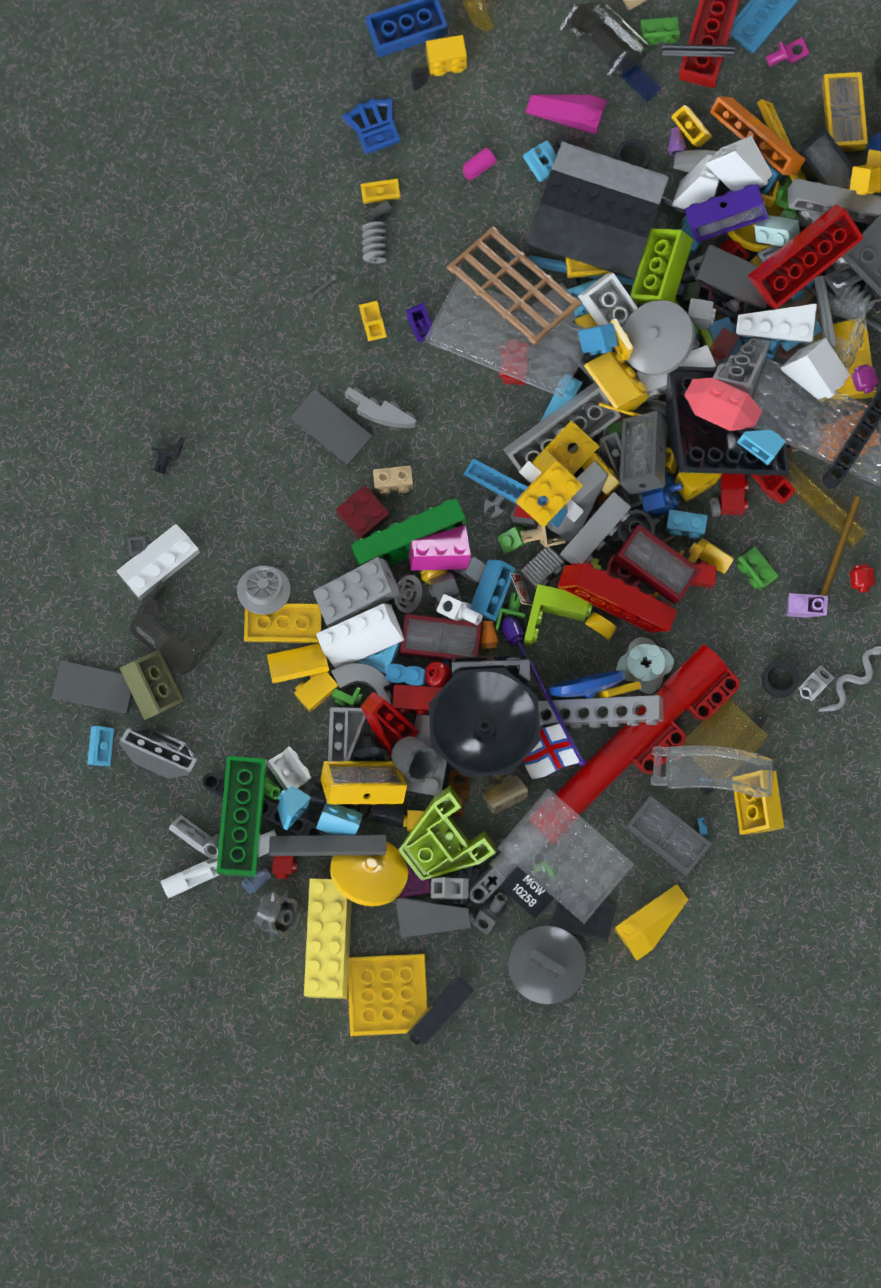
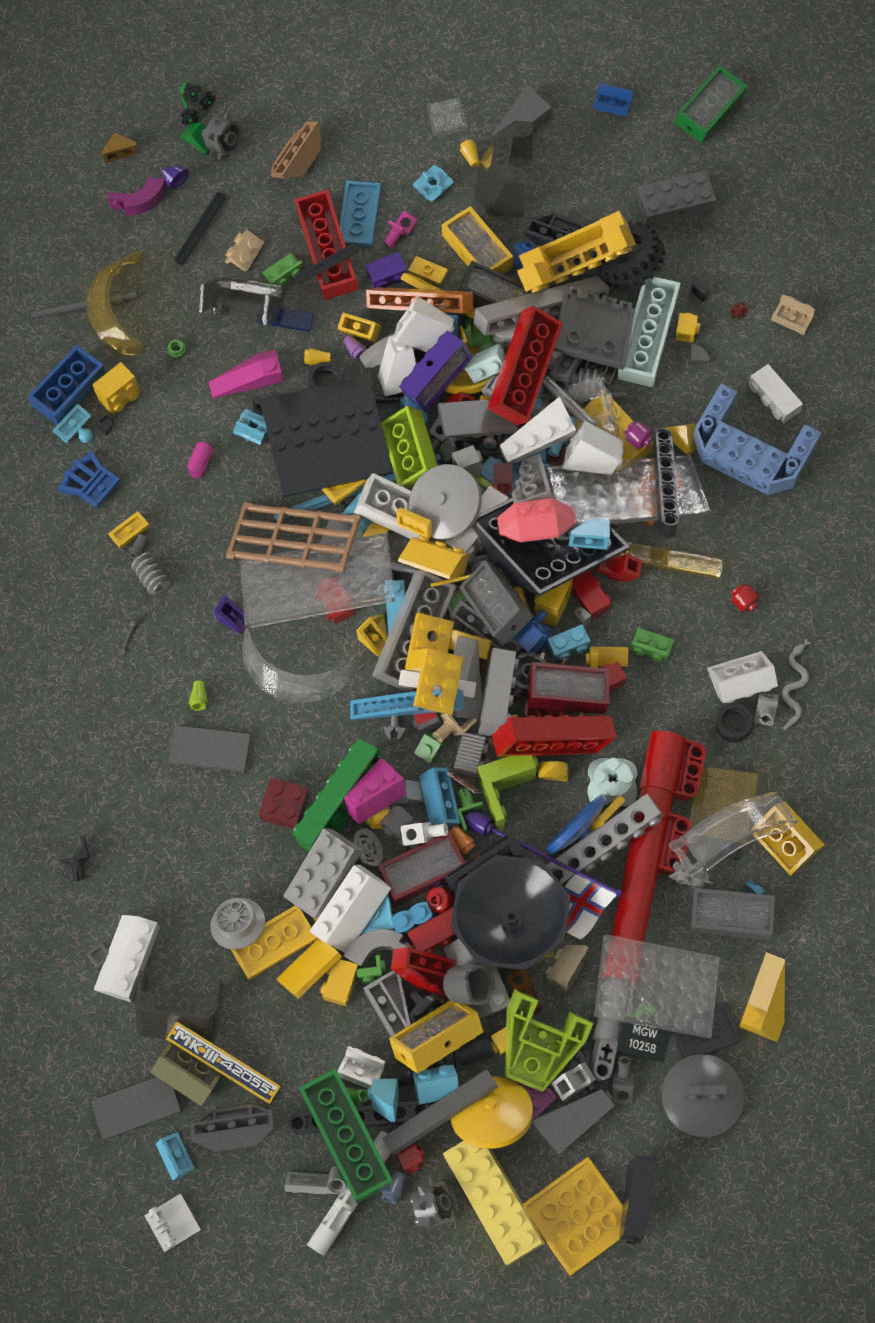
camera: 30 degrees left, 10 degrees down
(67, 797) = (172, 1222): none -> white hinge
(182, 696) = (222, 1062): none -> tile
(349, 375) = (198, 697): none -> lime cone
(372, 321) = (189, 639): yellow slope -> none
(386, 414) = (251, 708): light grey slope -> none
(390, 64) = (72, 424): none -> medium azure plate
(393, 479) = (292, 759): tan bracket -> none
(432, 417) = (292, 686): none -> clear windscreen
(522, 41) = (176, 344): none -> bright green plate
(529, 412) = (373, 633): none -> yellow slope
(598, 339) = (395, 532): dark azure brick -> none
(637, 130) = (315, 356): none -> yellow cone
(658, 792) = (698, 881): none -> light grey hinge
(749, 87) = (386, 271): none -> dark purple brick
(787, 108) = (428, 271): none -> yellow plate
(806, 605) = (714, 648): lavender slope -> none
(814, 644) = (743, 677): none -> white slope
(840, 546) = (724, 640): pearl gold bar -> none
(845, 18) = (424, 183): none -> medium azure piece

